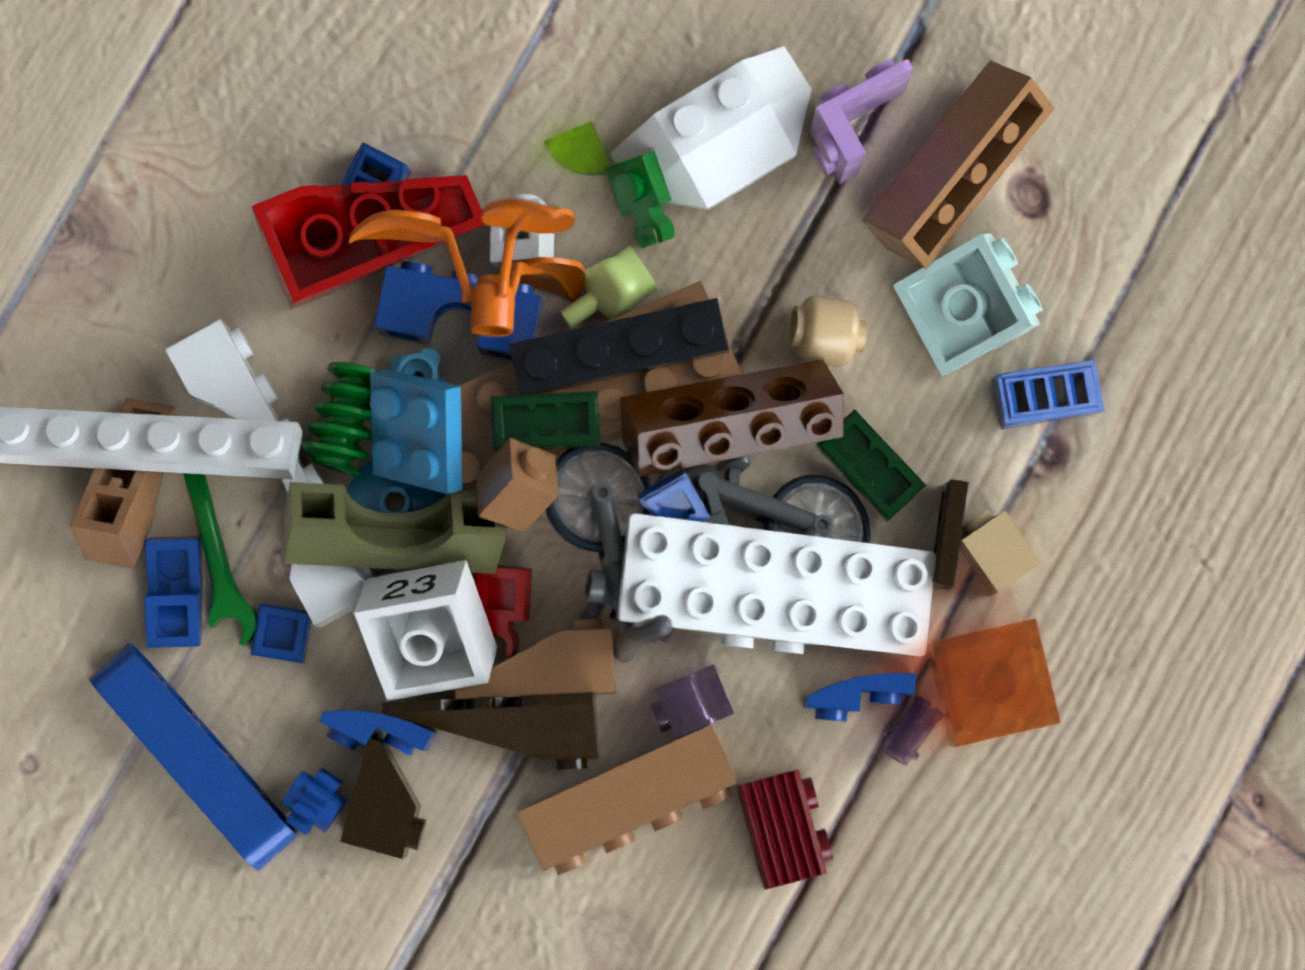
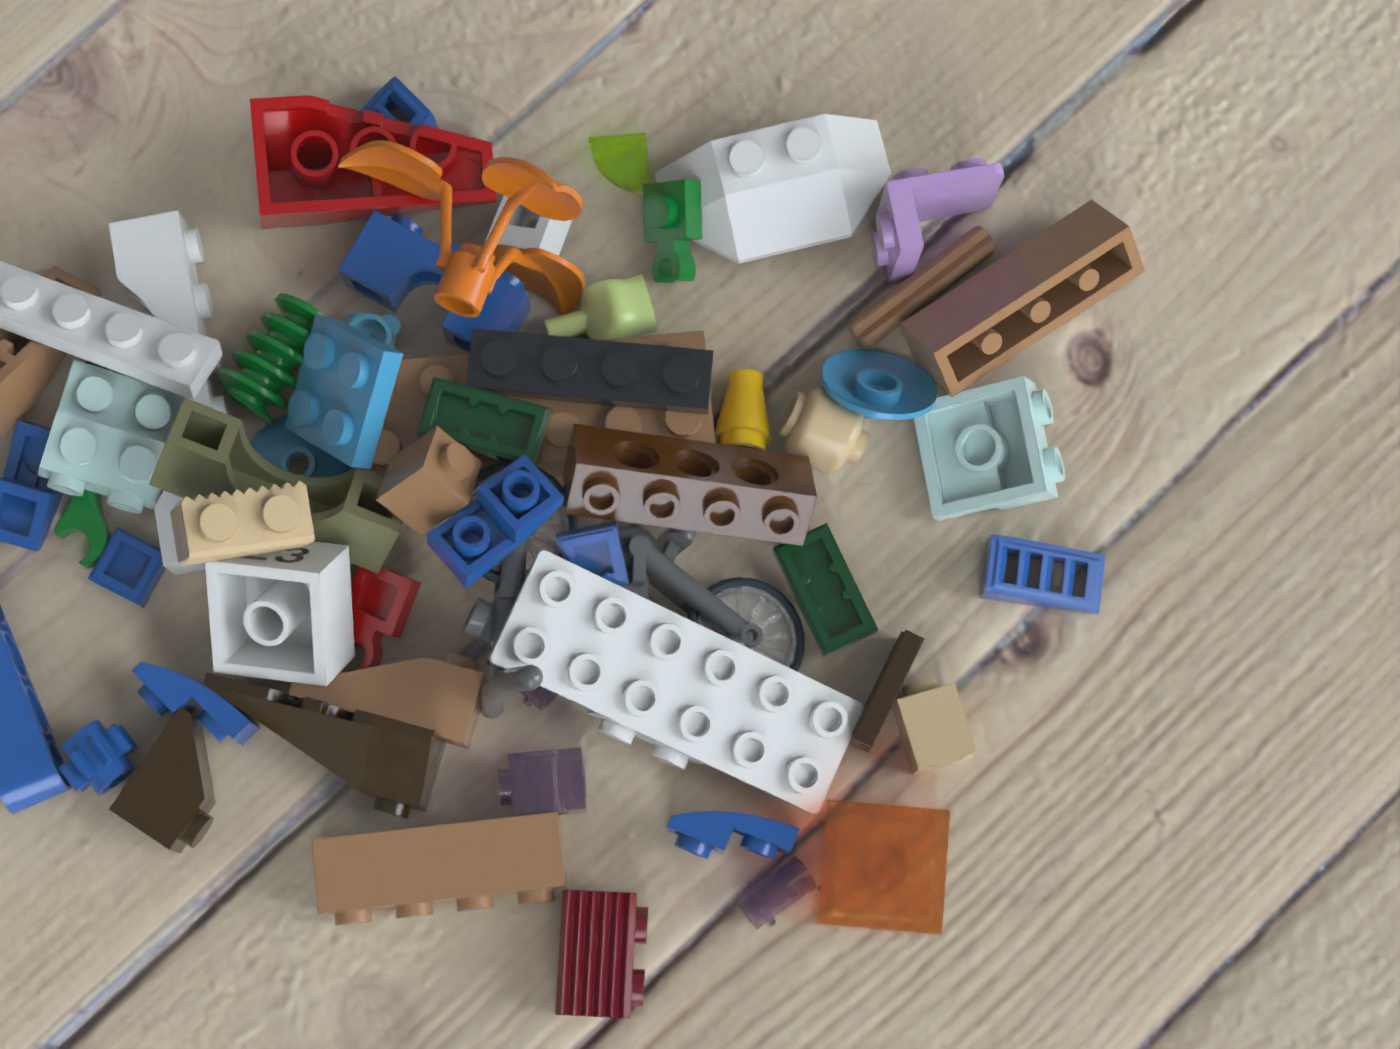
camera: 10 degrees right, 5 degrees down
(229, 531) = (108, 437): none -> light aqua plate
(376, 573) = (242, 523): none -> tan brick
(585, 501) = (496, 522): none -> blue slope
(754, 338) = (744, 412): none -> yellow cone
(861, 277) = (878, 384): none -> dark azure dish
(869, 180) = (922, 287): none -> medium nougat axle

